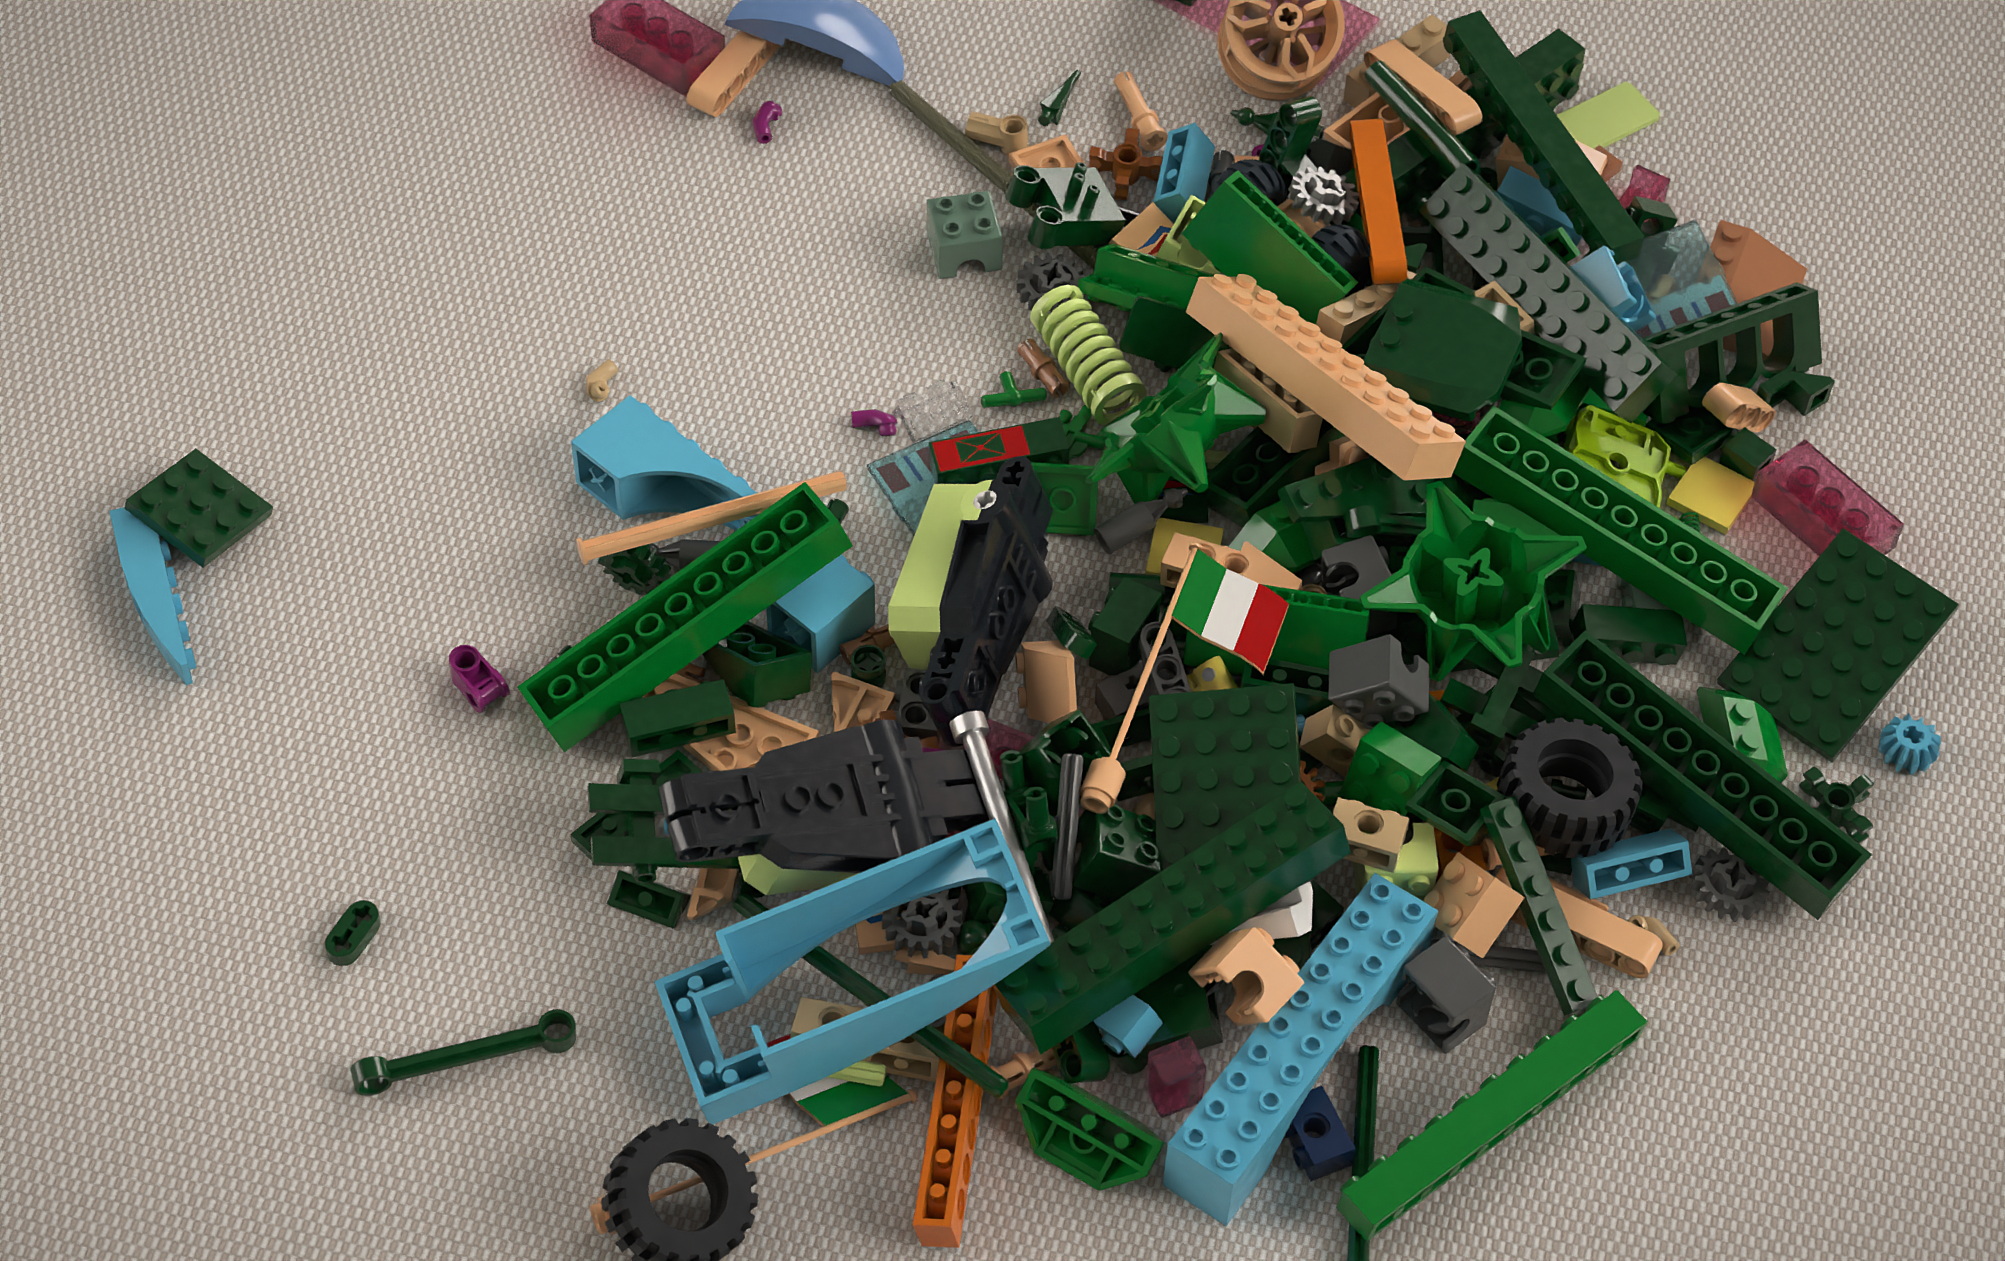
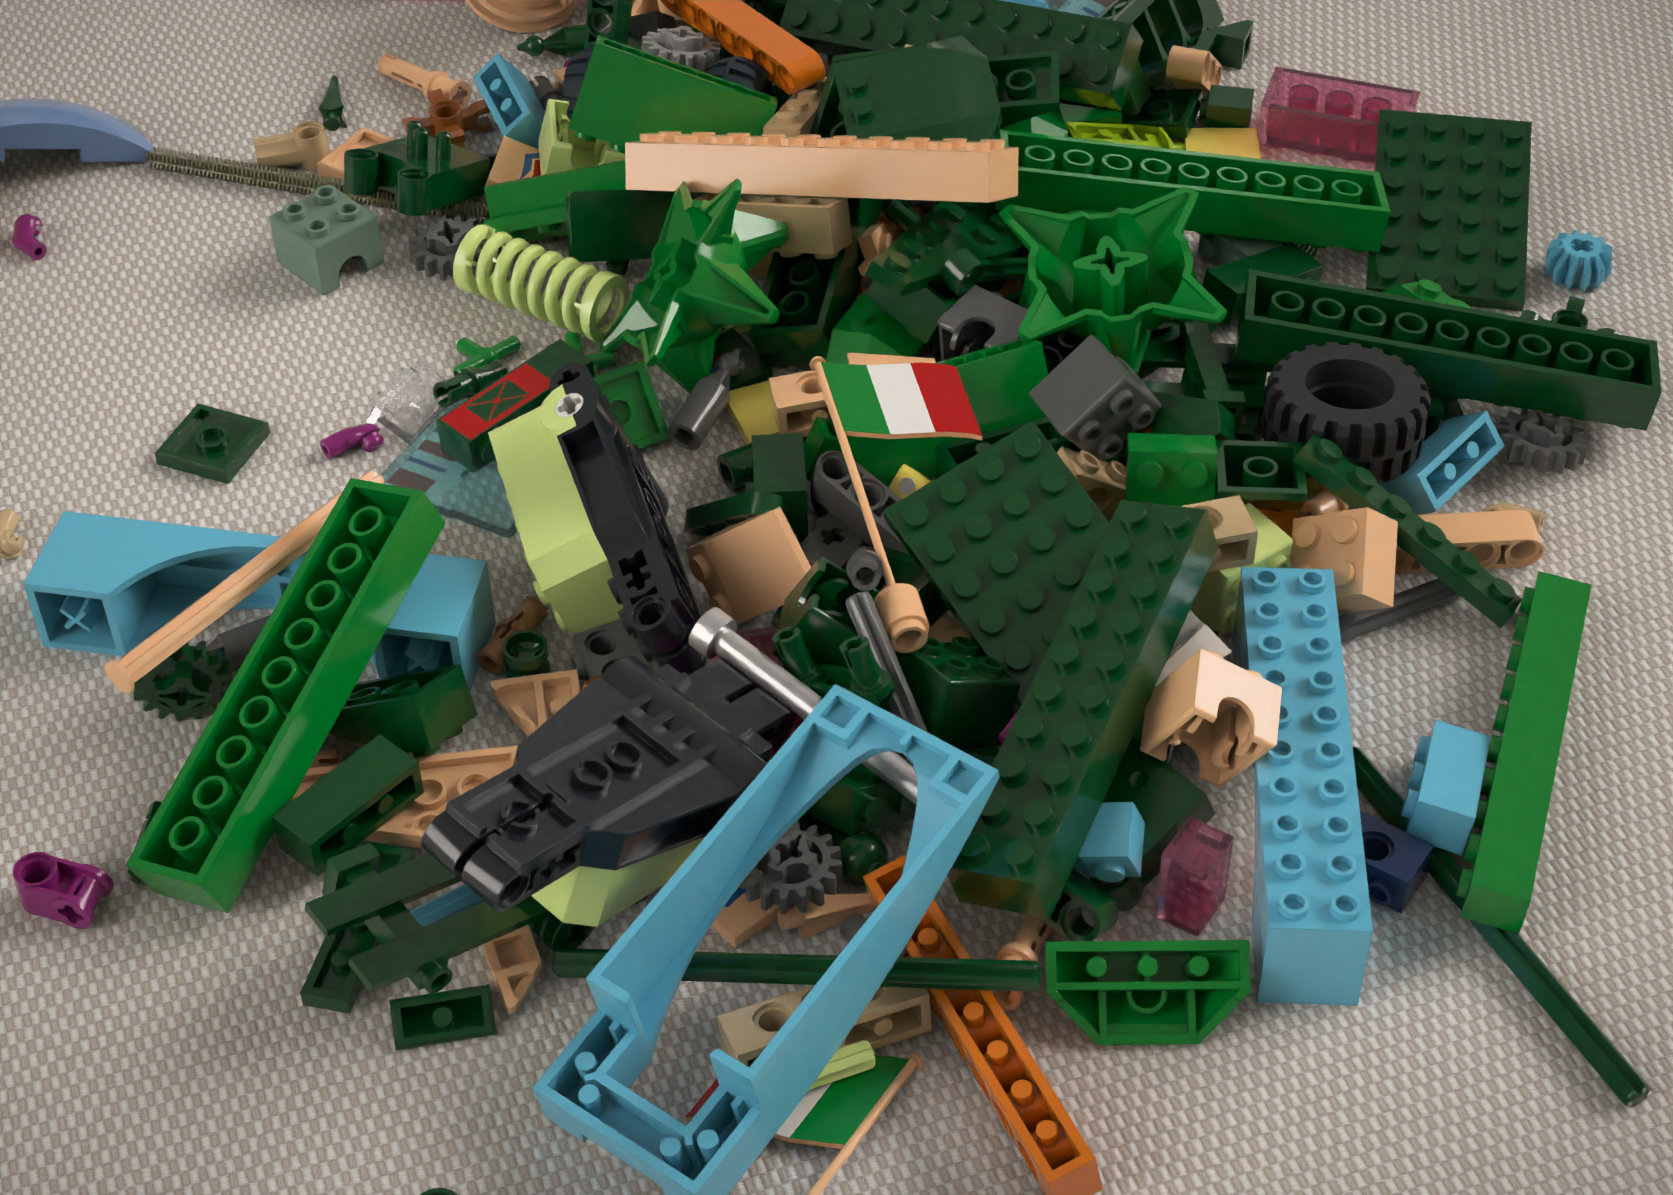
camera: 30 degrees left, 10 degrees down
(781, 373) = (212, 443): none -> dark green tile
(983, 416) = (468, 383): none -> dark green pin
(1043, 368) = (497, 320): nougat pin -> none
(1100, 735) = (865, 579): none -> dark grey pin
(1403, 1109) = (1445, 785): none -> medium azure brick
(1447, 994) = (1389, 656): dark grey piece -> none

